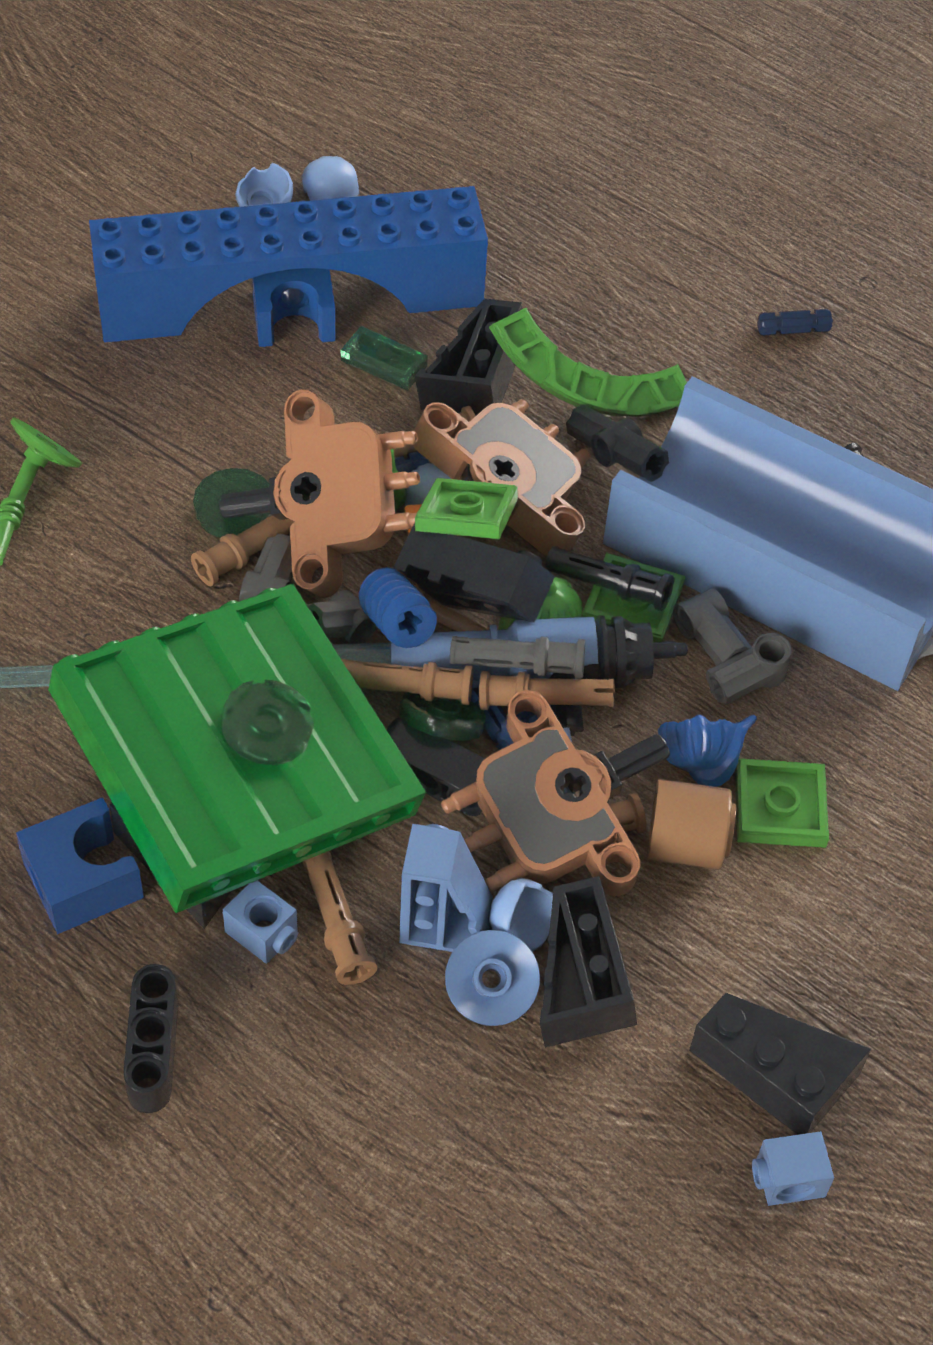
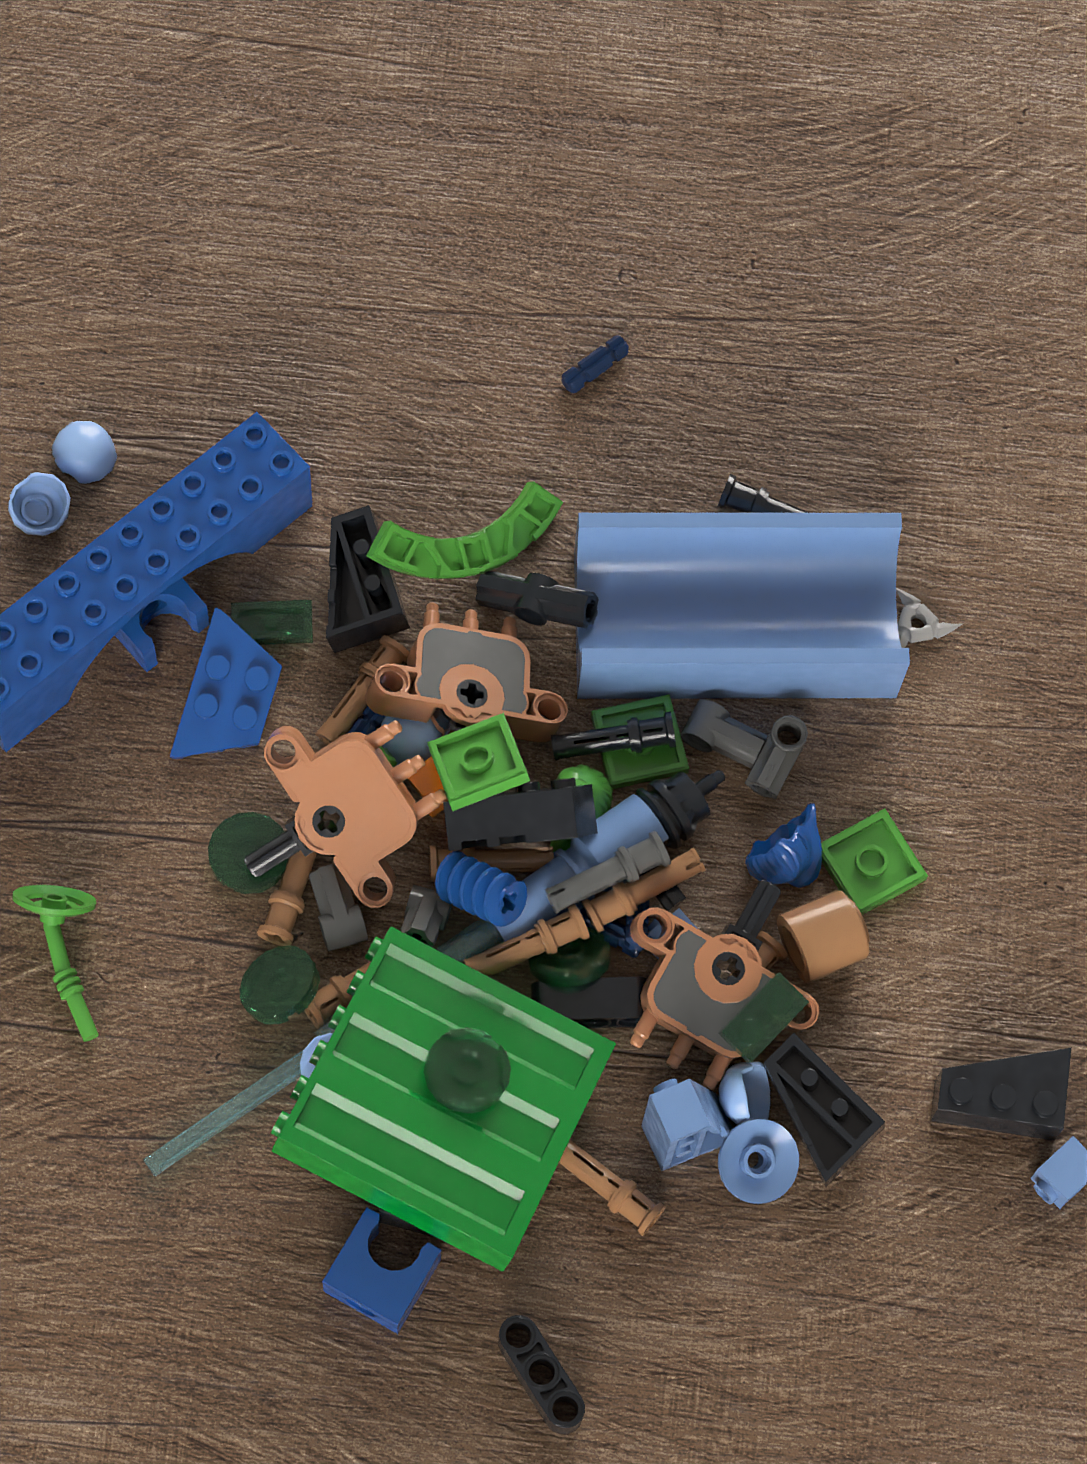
camera: 35 degrees left, 15 degrees up
(175, 600) = (279, 984): none -> clear green tile
(261, 904) = (540, 1239): medium blue brick -> none
(320, 364) = (228, 692): none -> blue wing
(577, 844) = (763, 1017): none -> clear green plate

